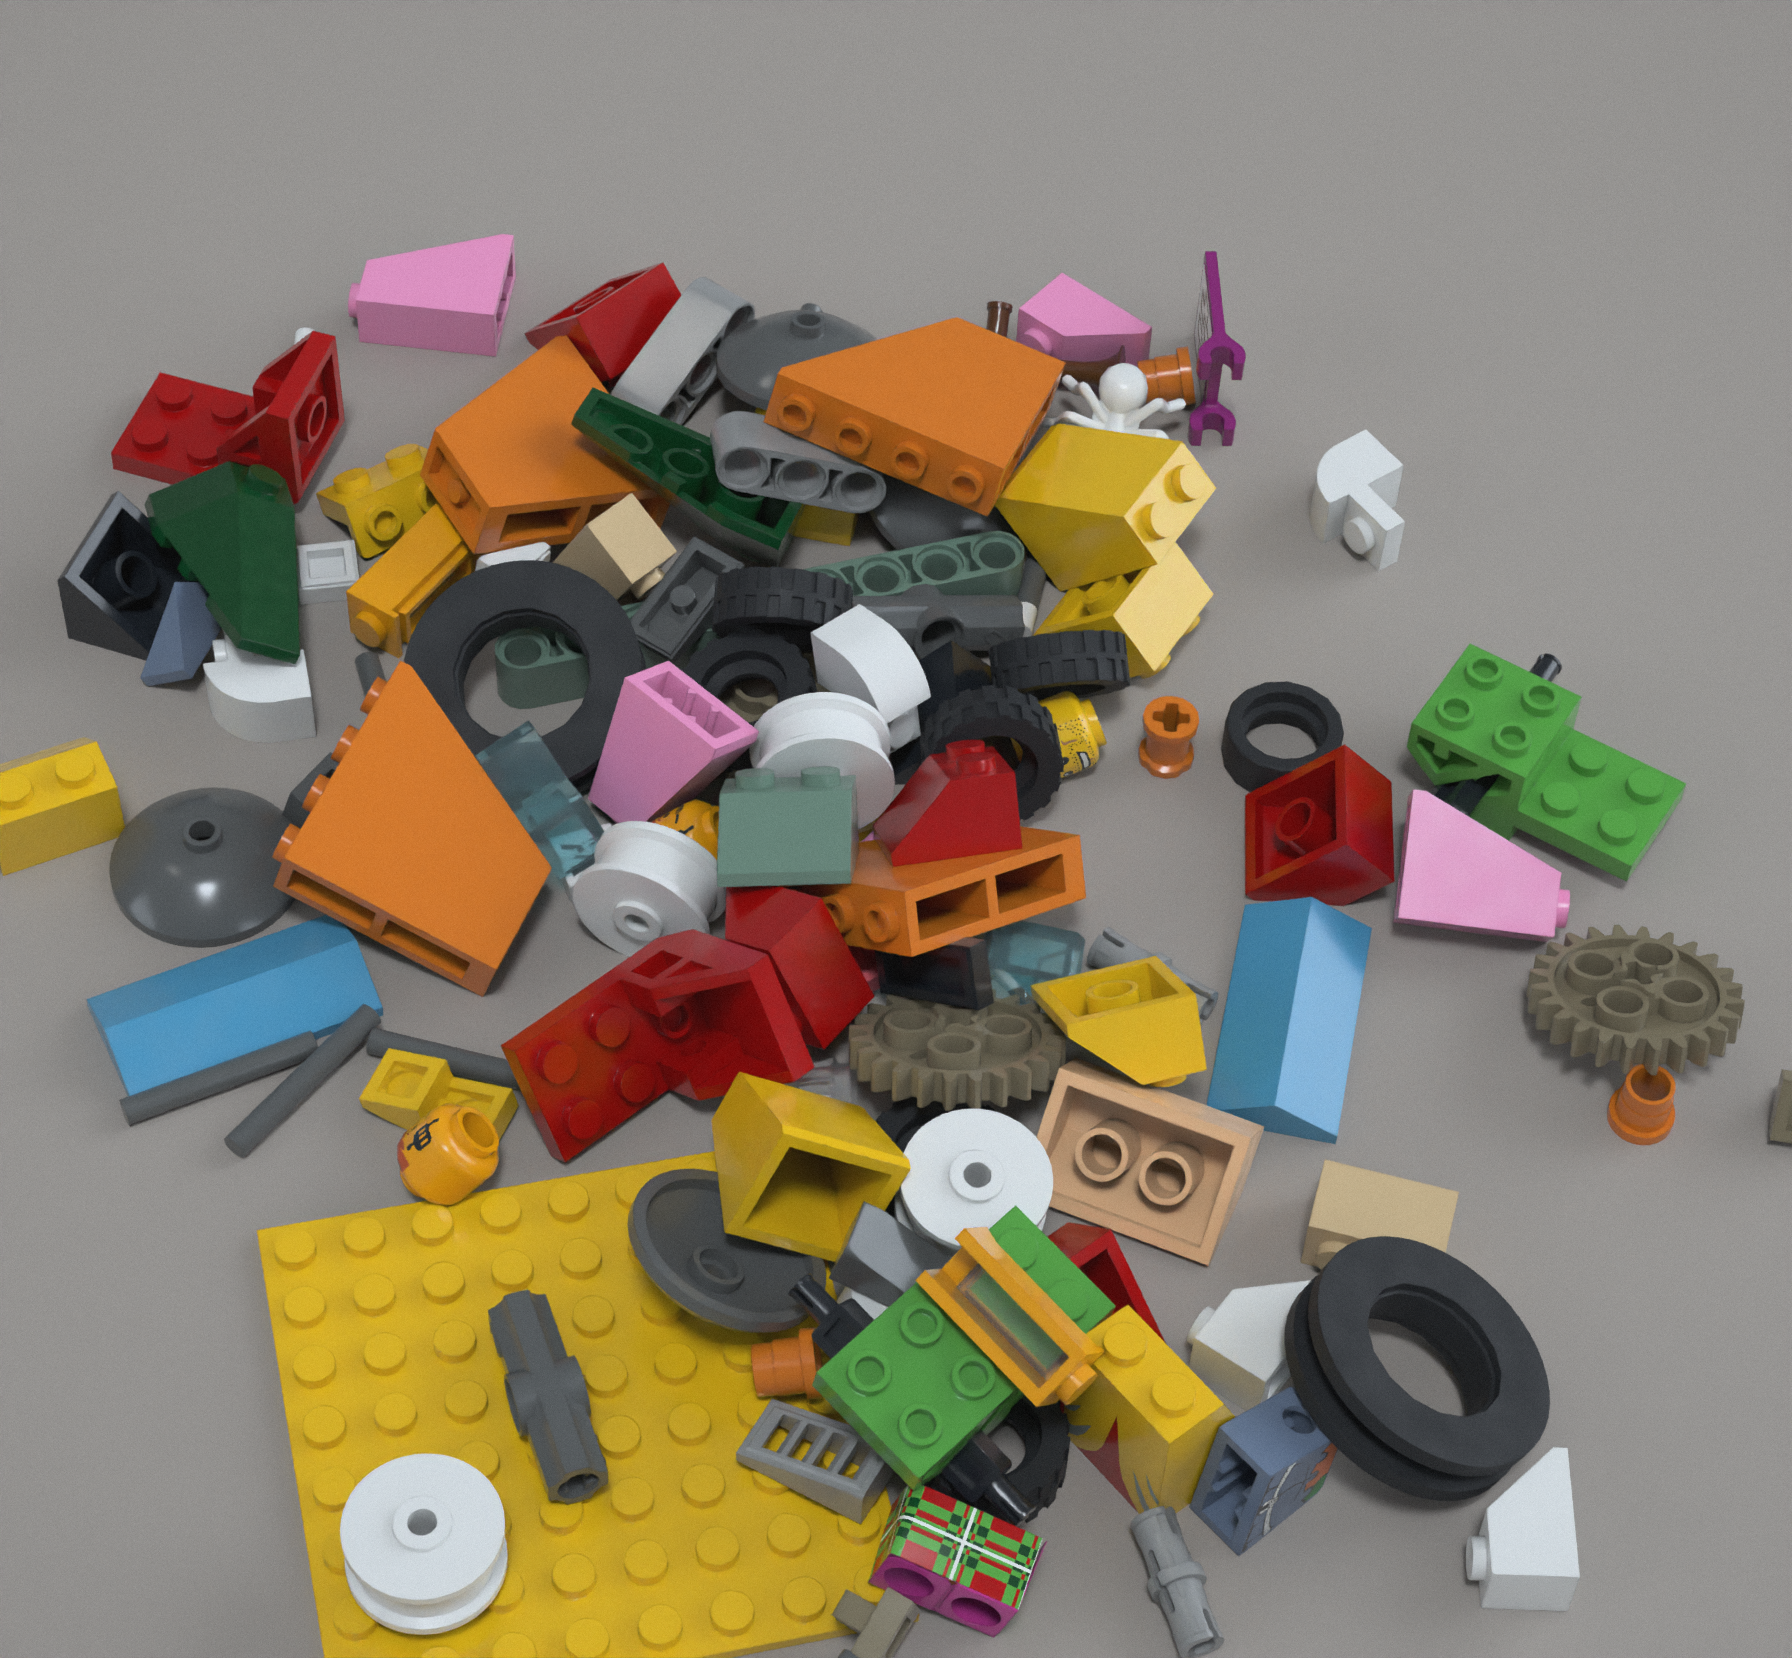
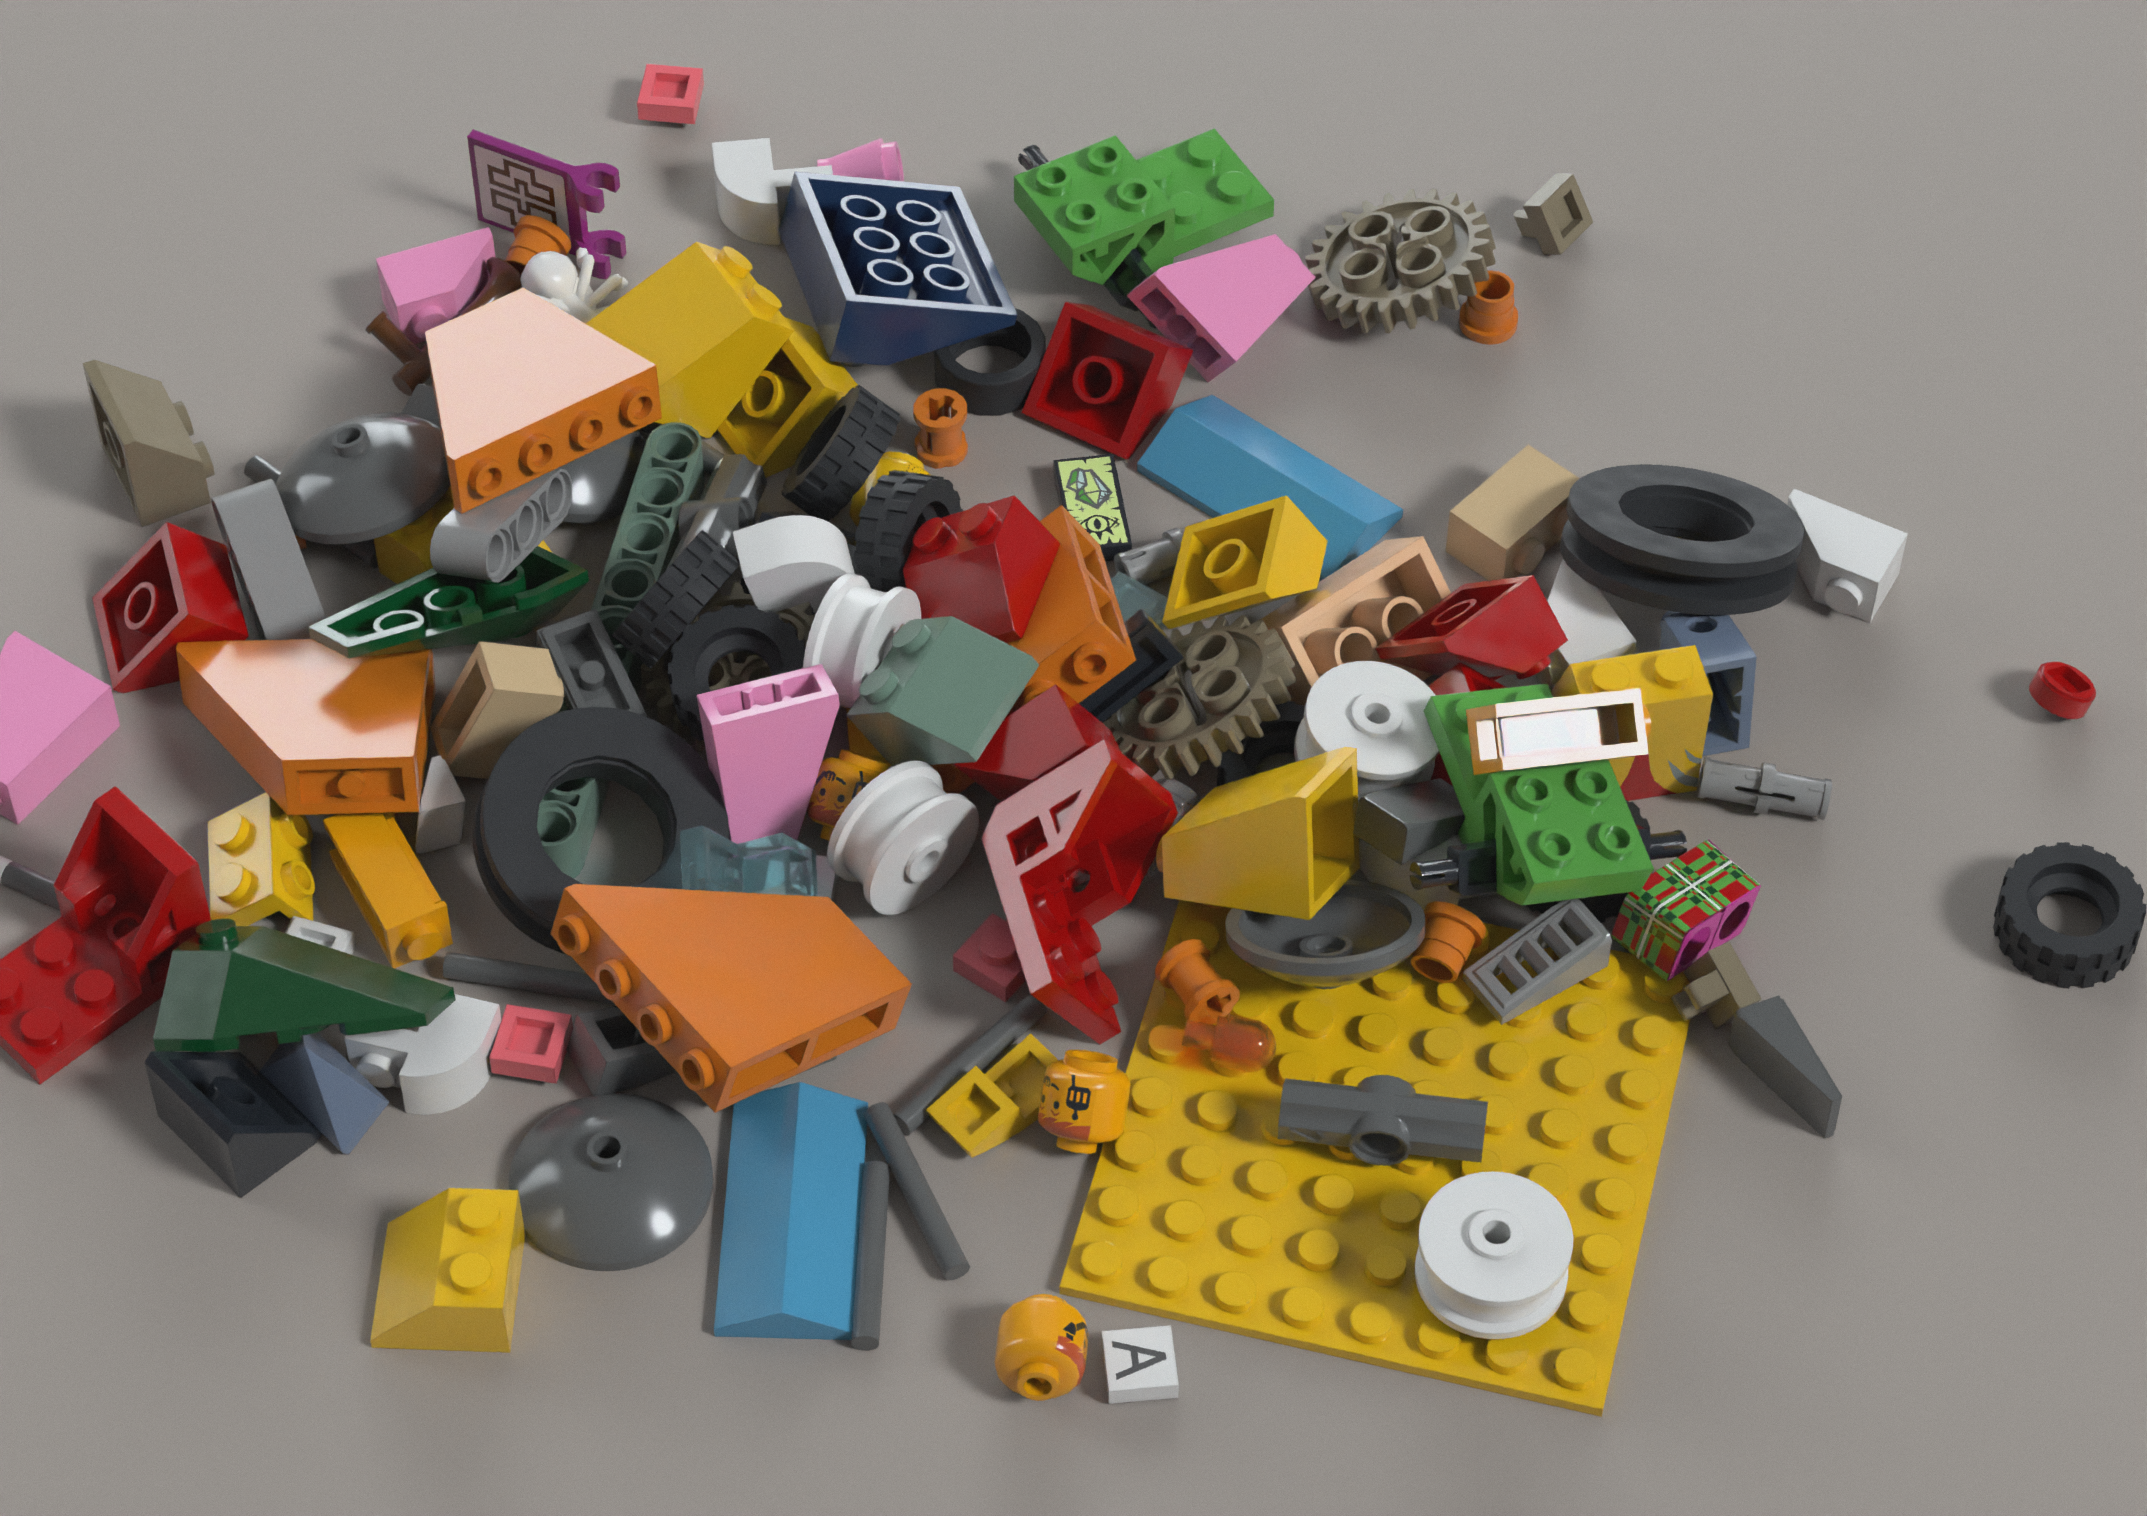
camera: 60 degrees left, 0 degrees up
(168, 1237) = (1041, 1344): none -> light orange head
(200, 1325) = (1139, 1364): none -> white tile
(303, 743) = (531, 1043): none -> coral plate
(578, 1242) = (1233, 1042): none -> clear orange cylinder
(616, 1189) = (1196, 982): none -> orange bush
(766, 223) = (148, 443): none -> dark tan slope
(1163, 892) = (1093, 496): none -> tile
(1169, 1239) = (1485, 625): none -> red slope
(1316, 612) = (890, 267): none -> dark blue slope
(1425, 388) = (670, 94): none -> coral plate
(1444, 559) = (869, 160): none -> bright pink cone

